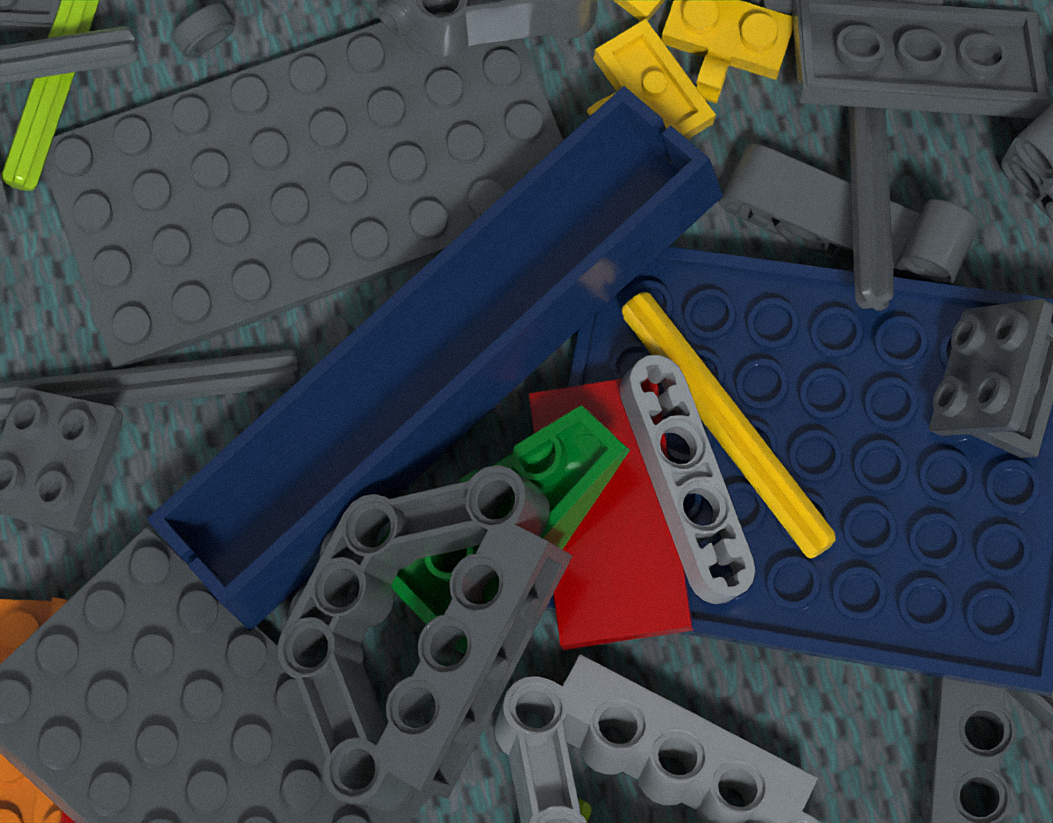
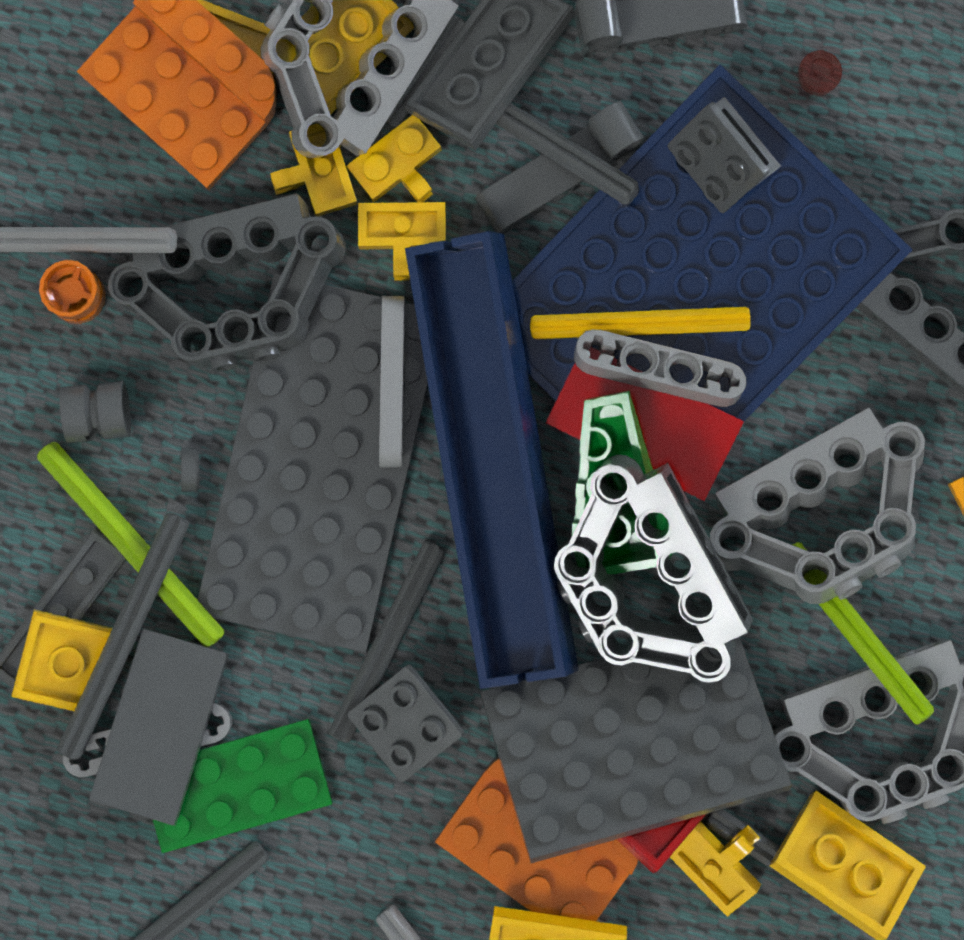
camera: 60 degrees left, 10 degrees up
(456, 182) = (392, 382): none -> light grey beam

